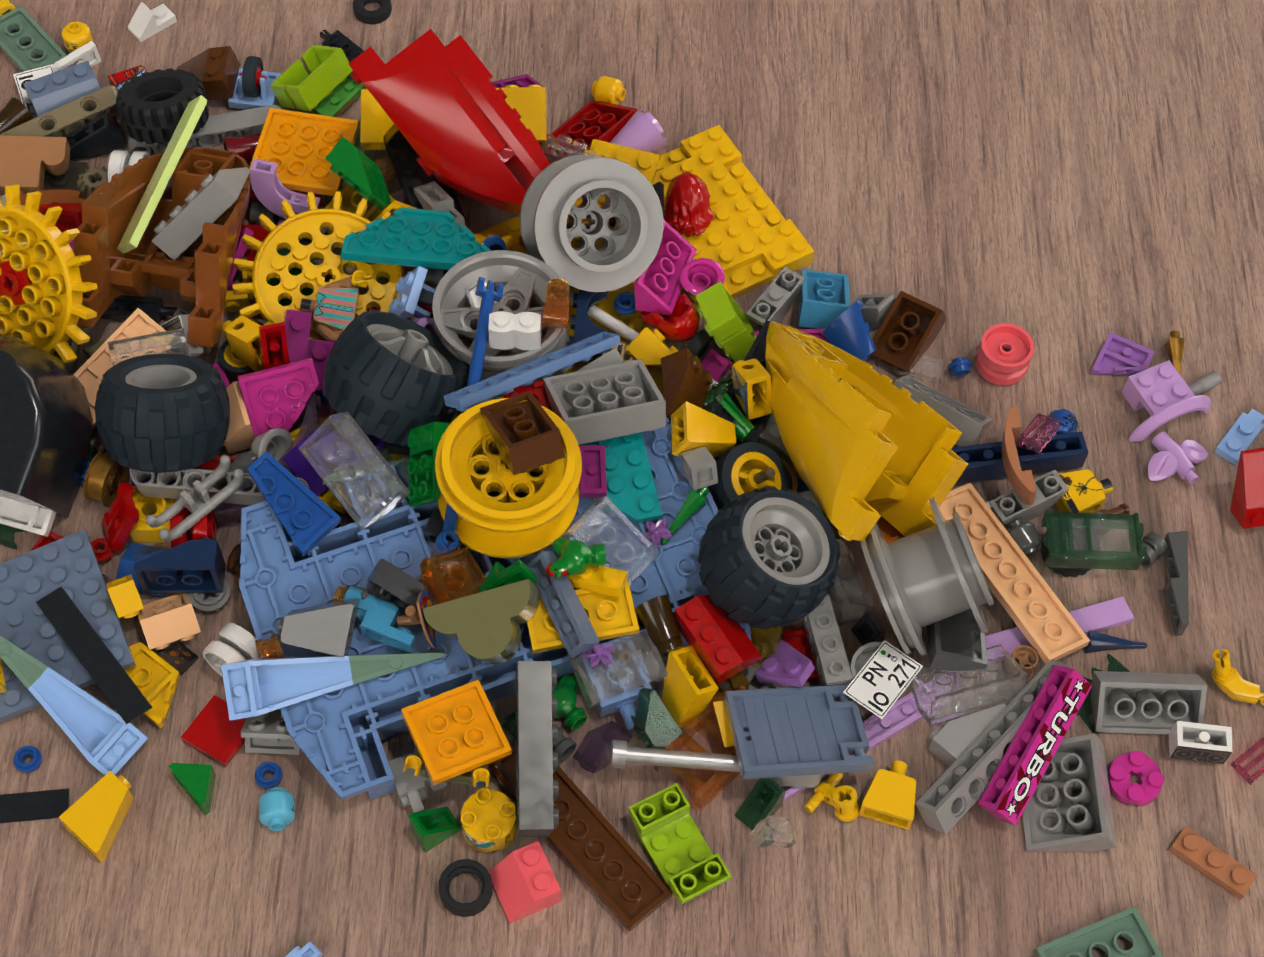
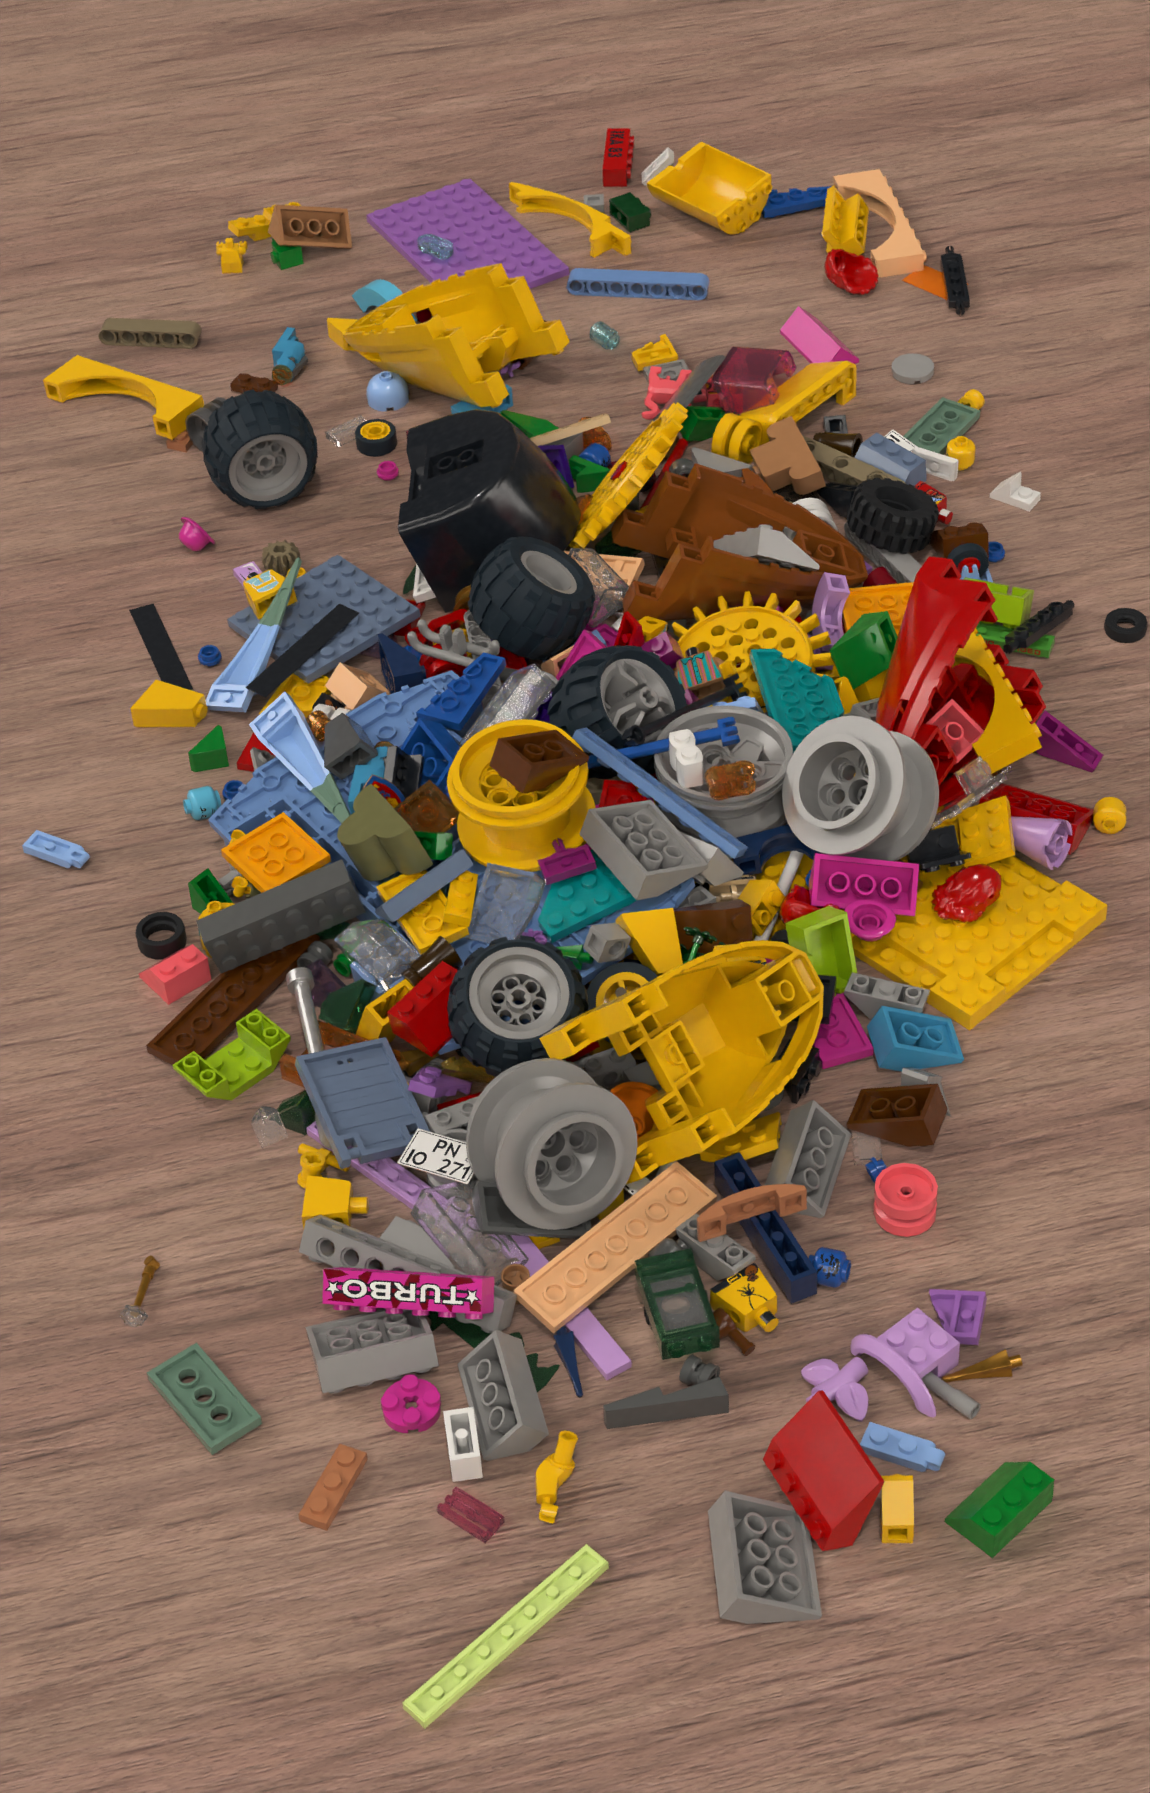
camera: 80 degrees right, 15 degrees down
(125, 596) = (362, 651): yellow slope -> none
(162, 175) = (786, 525): yellowish green tile -> none
(364, 546) = (436, 747): none -> blue slope
(462, 363) = (639, 733): none -> black hinge
(575, 557) = (465, 874): green animal -> none
(599, 653) = (386, 929): medium lavender plant -> none
(851, 333) = (863, 1064): blue slope -> none
(1037, 441) = (795, 1230): clear pink tile -> none

